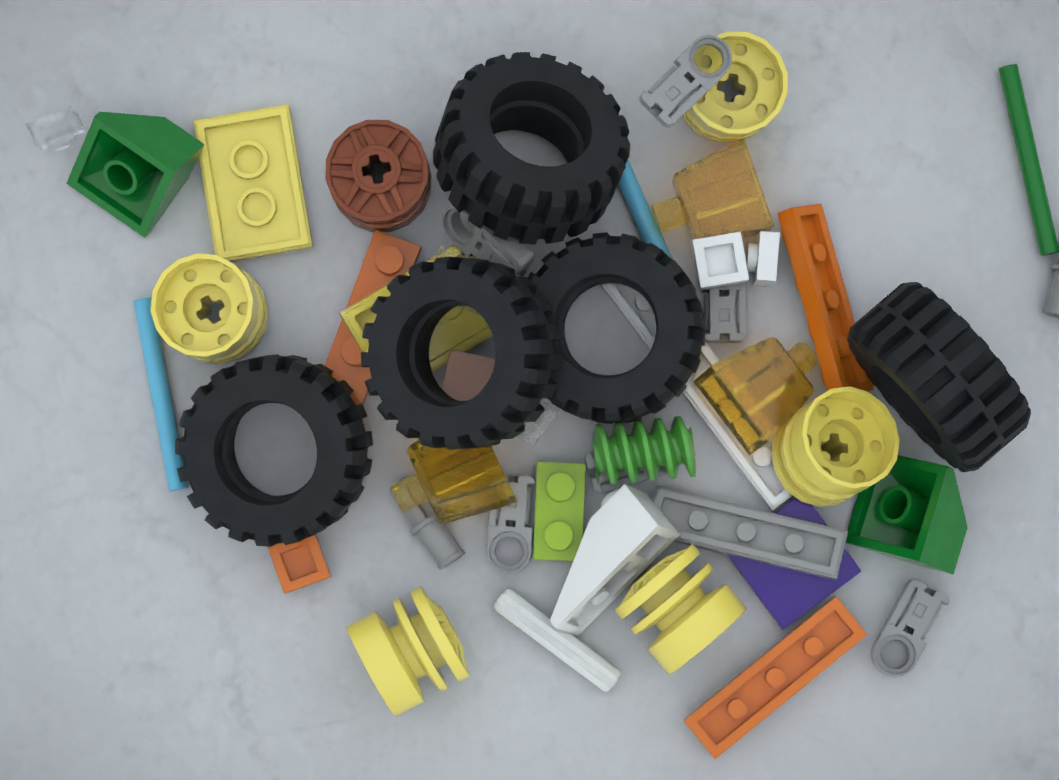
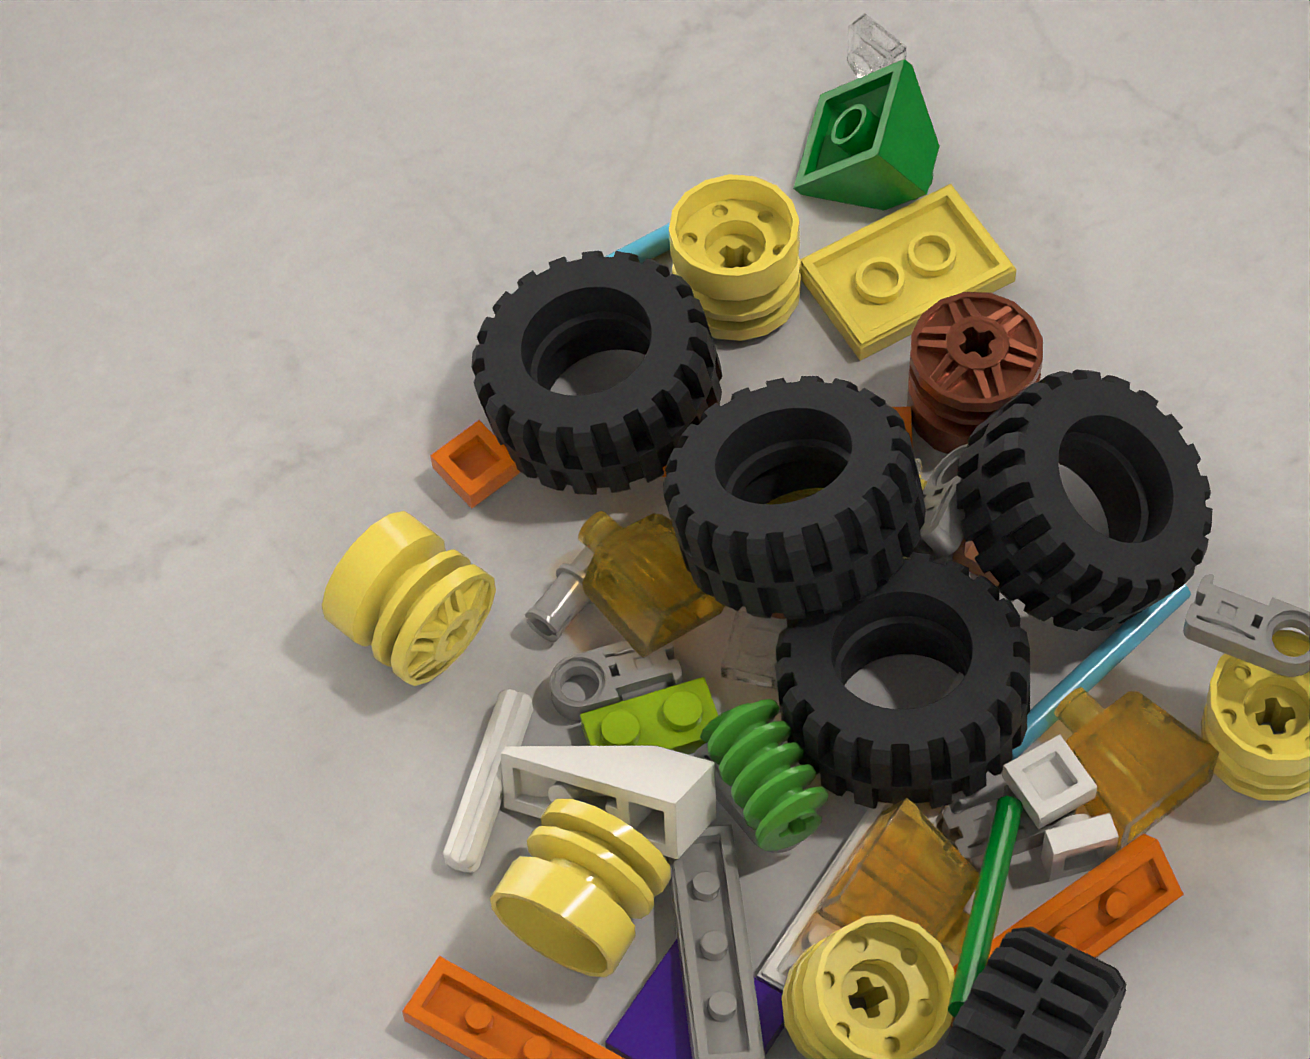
camera: 70 degrees right, 25 degrees down
(803, 344) = (987, 899): none -> green bar

